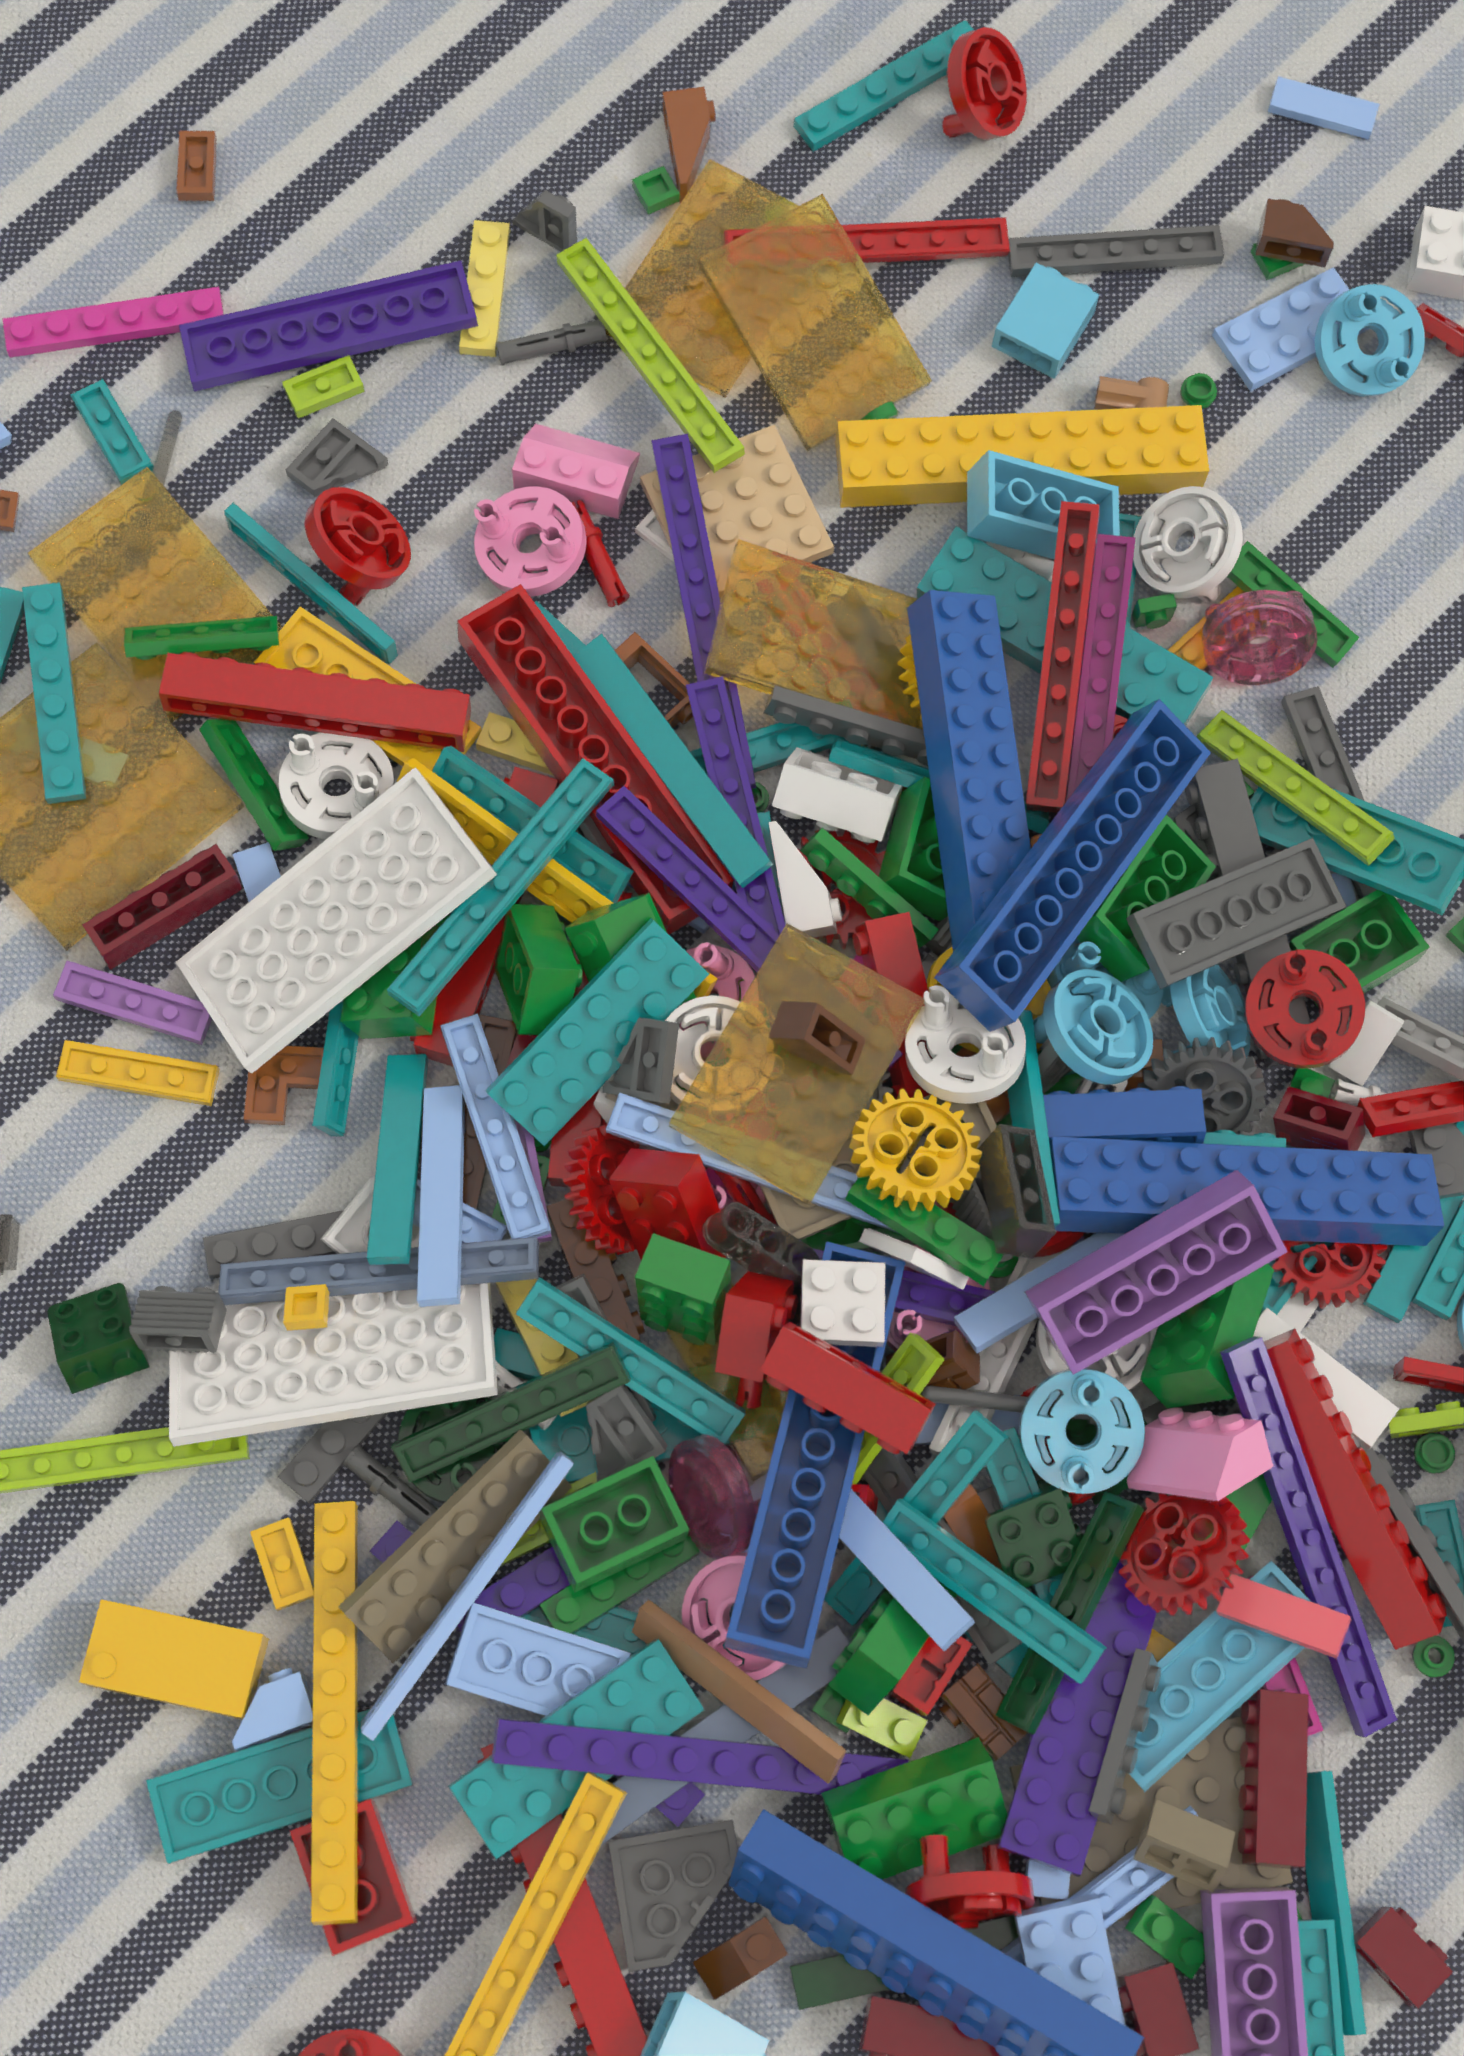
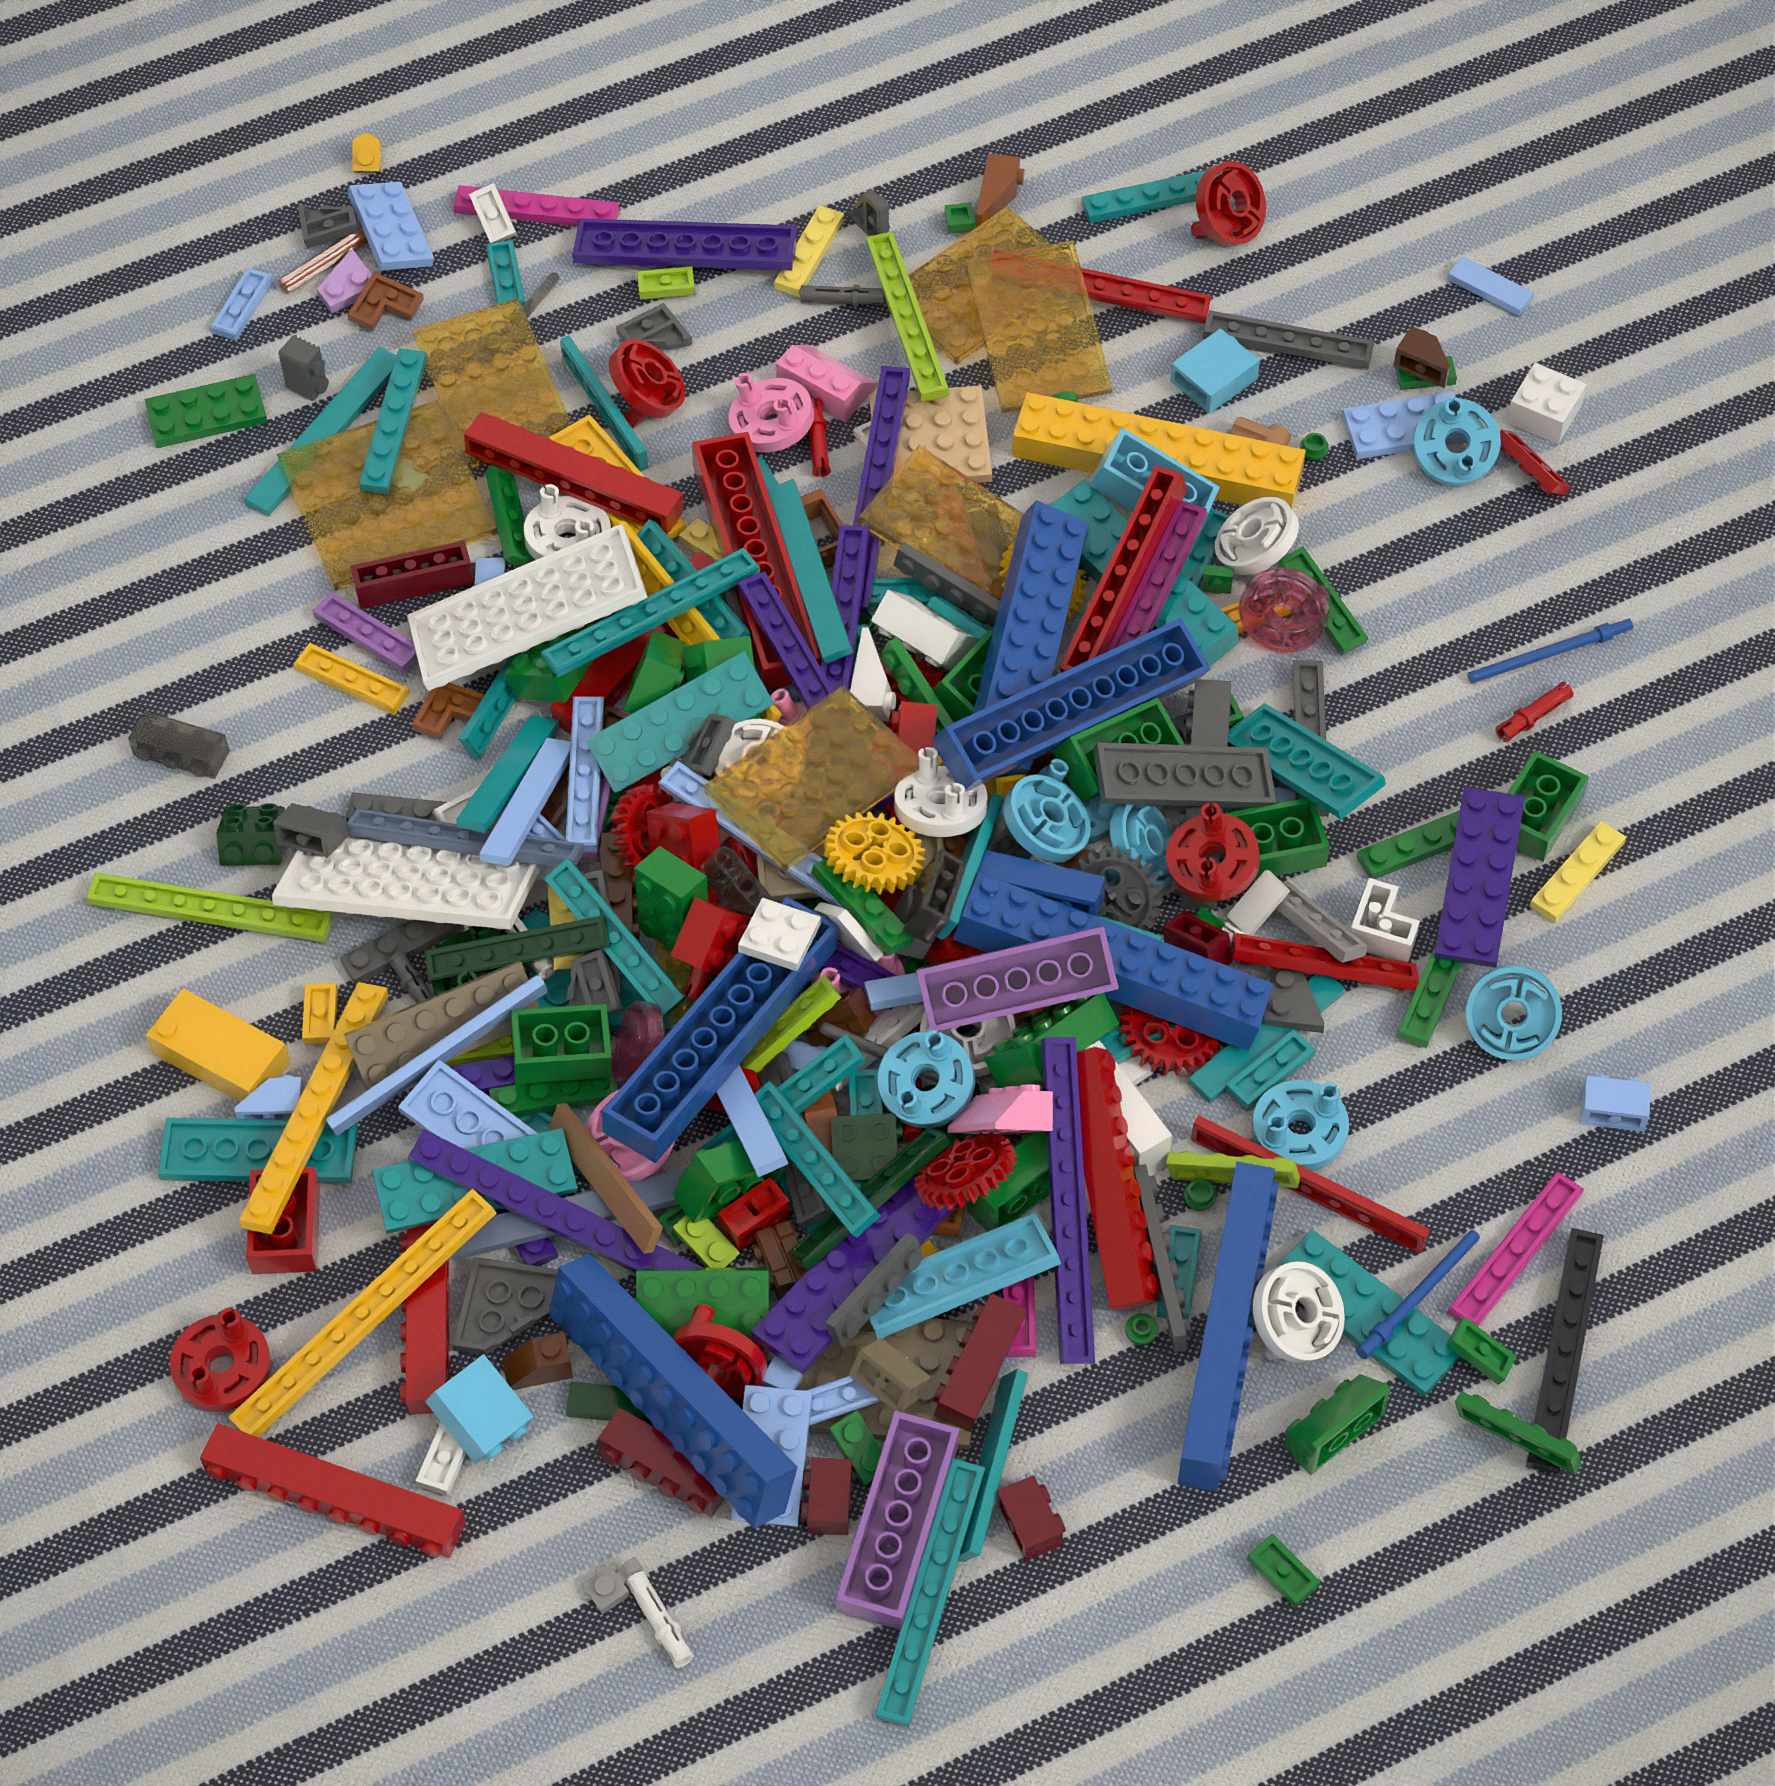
camera: 25 degrees right, 15 degrees down
(65, 351) = (493, 214): none -> white plate
(193, 637) = (522, 414): green plate -> none
(196, 166) = (635, 123): dark orange plate -> none
(306, 1307) = (402, 844): yellow plate -> none
(817, 1036) = (830, 754): reddish brown slope -> none
(847, 1388) = (752, 975): red brick -> none
(1284, 1616) = (1026, 1243): coral tile -> none
(1296, 788) = (1272, 717): lime tile -> none

